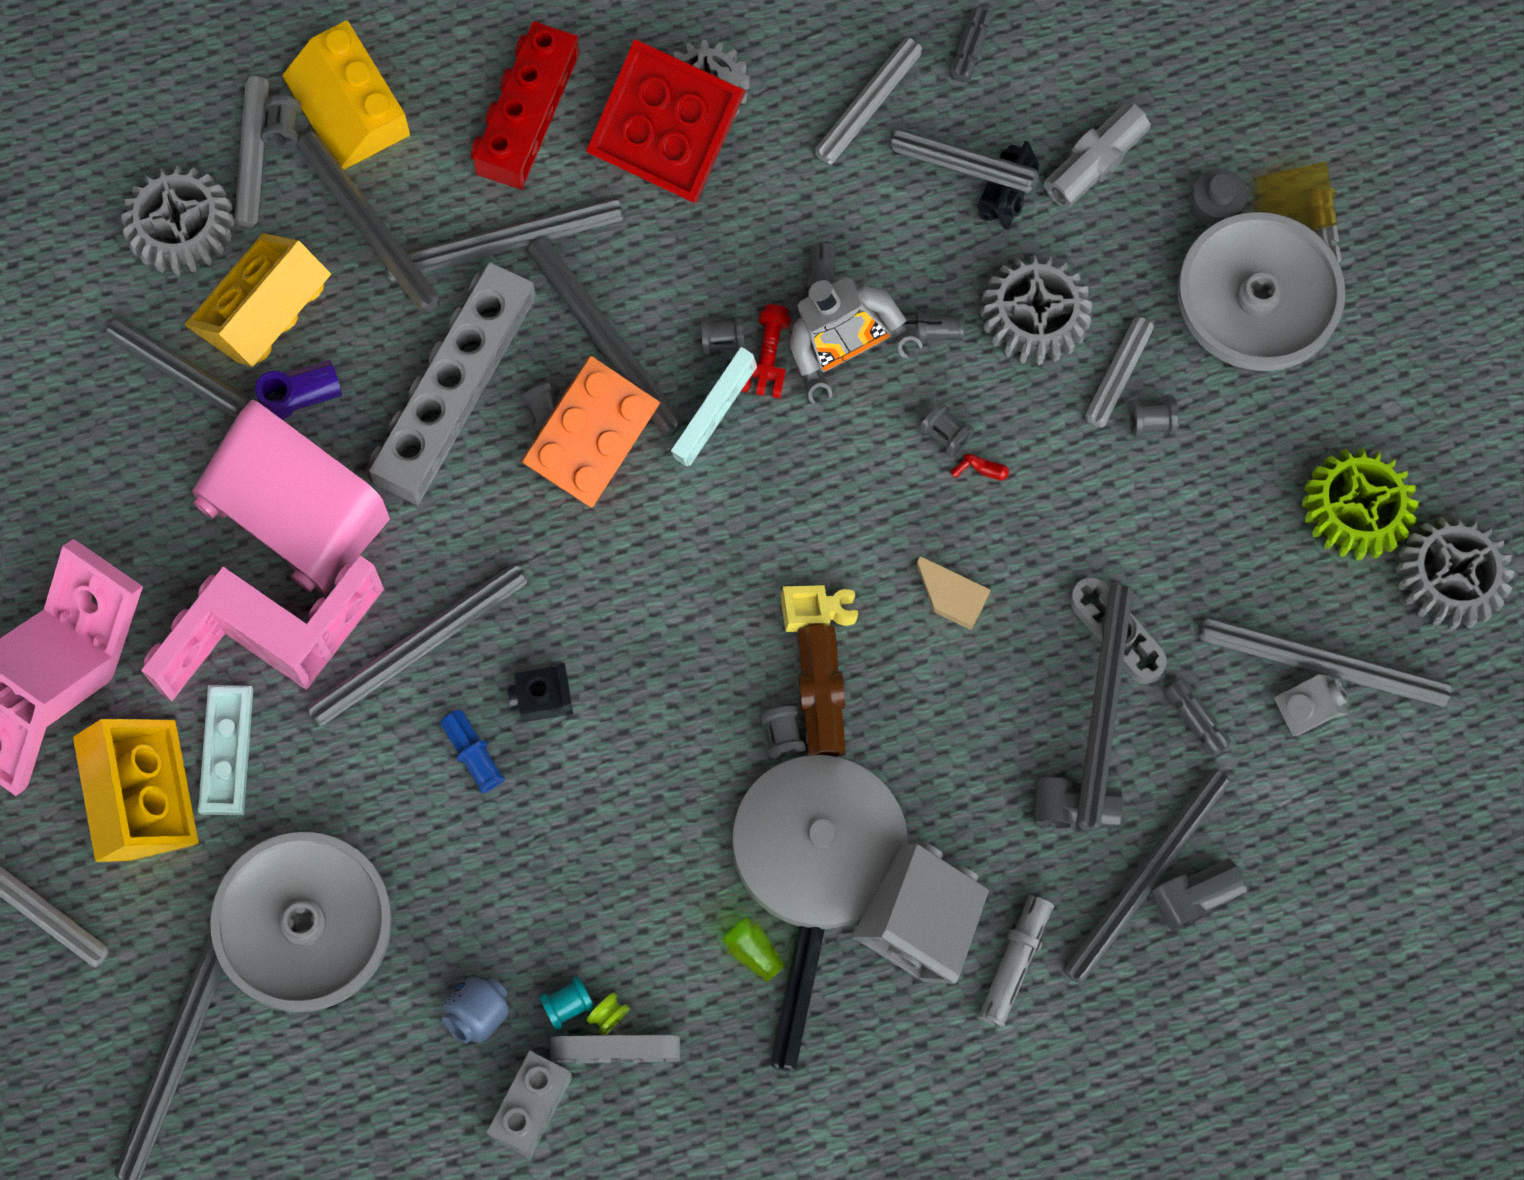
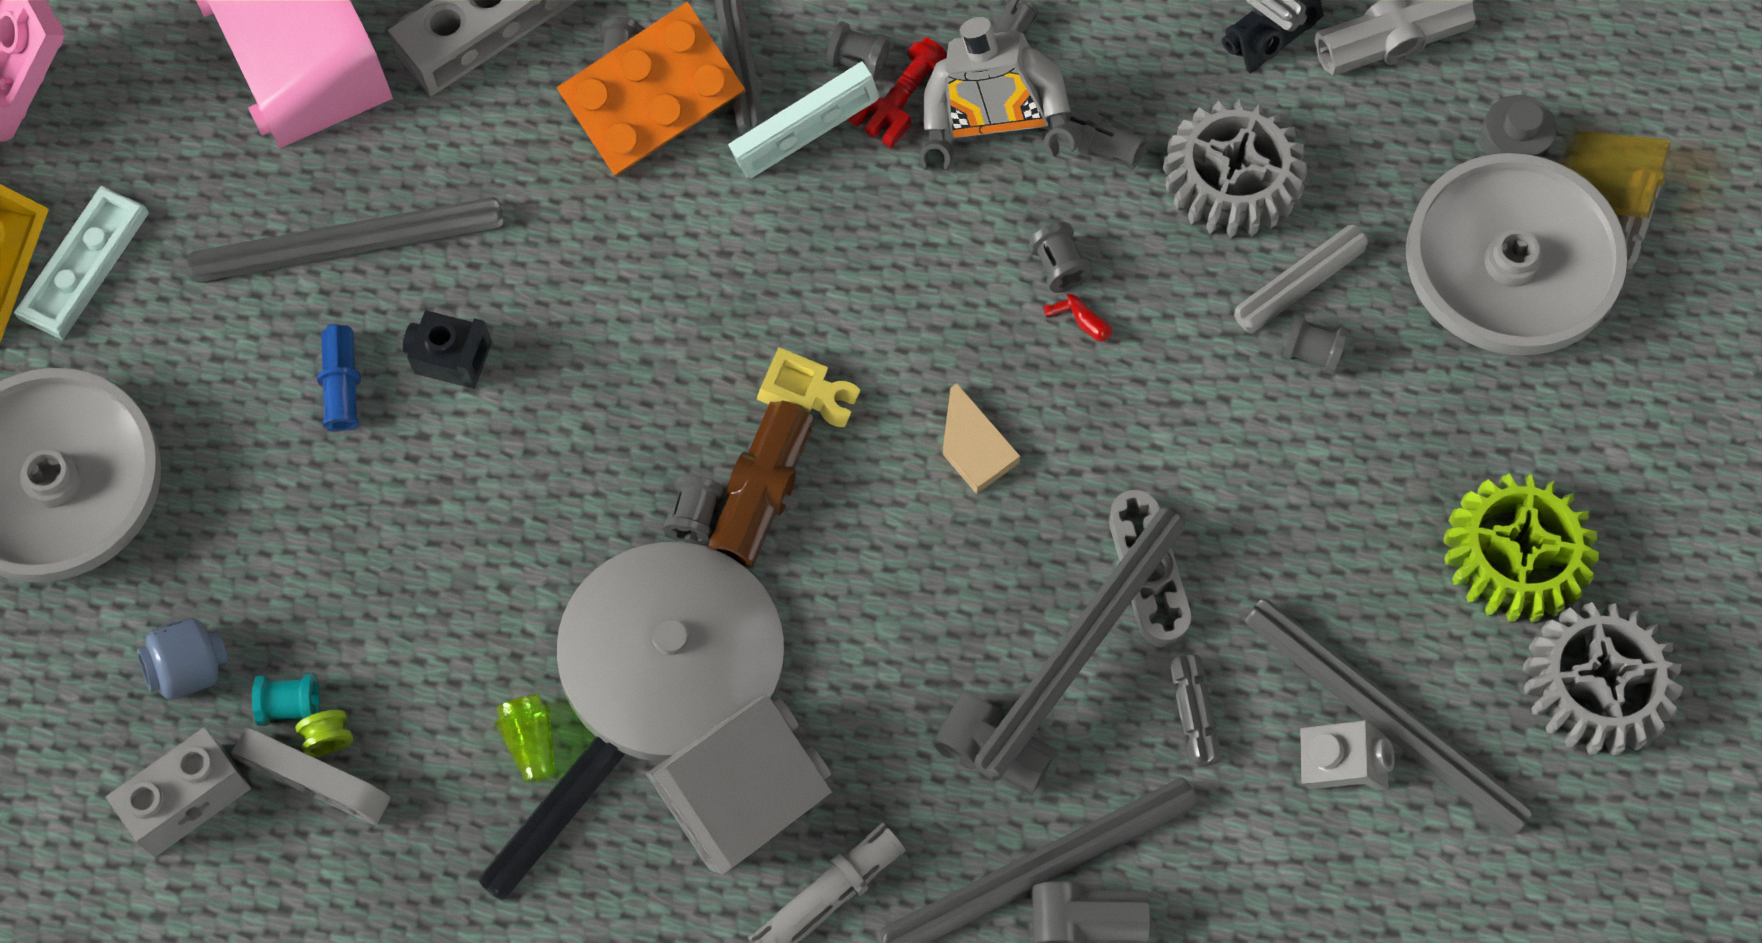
camera: 30 degrees right, 5 degrees down
(263, 627) = (153, 108): bright pink bracket -> none

